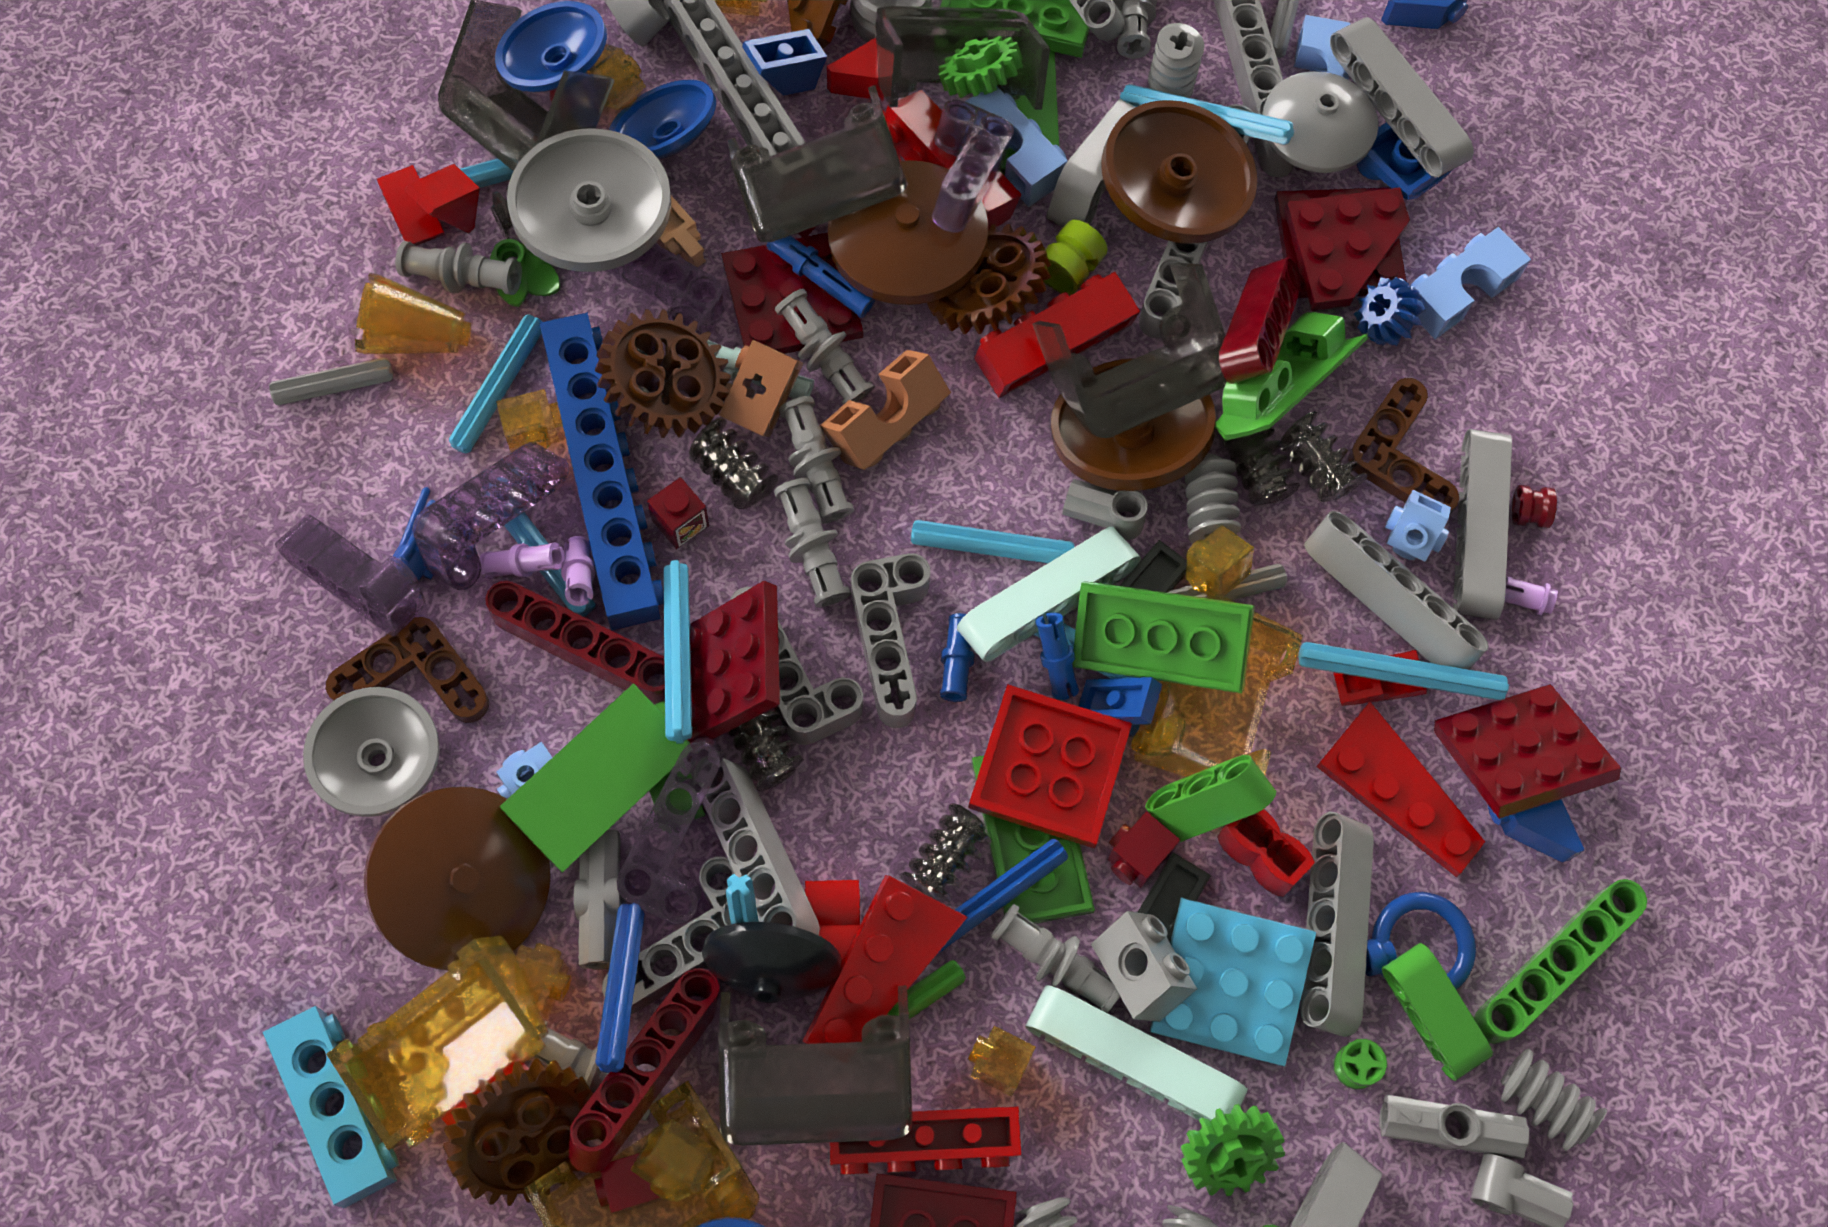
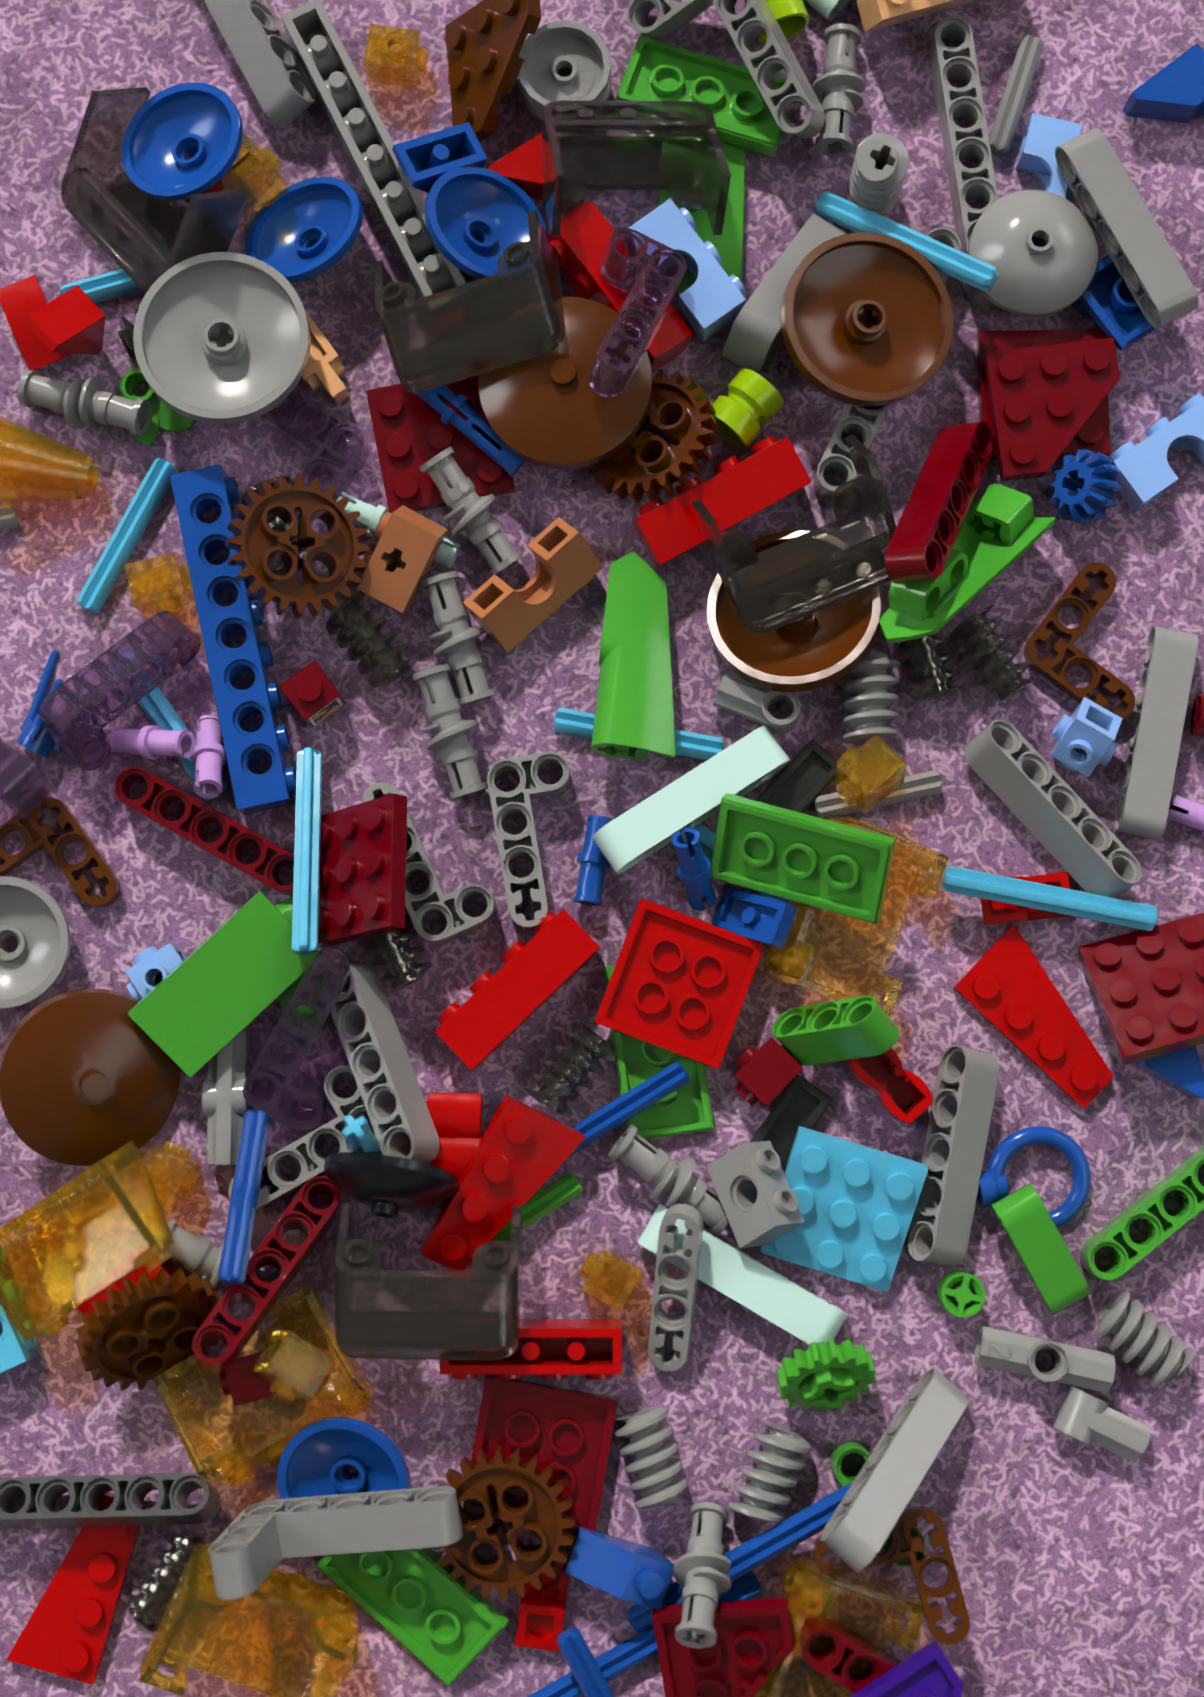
camera: 10 degrees right, 15 degrees up
(816, 98) = (476, 217): none -> blue dish
(889, 778) = (516, 990): none -> red brick
(980, 66) = (656, 181): bright green gear -> none
(987, 478) = (635, 666): none -> bright green panel
(1072, 1066) = (677, 1288): none -> light grey beam

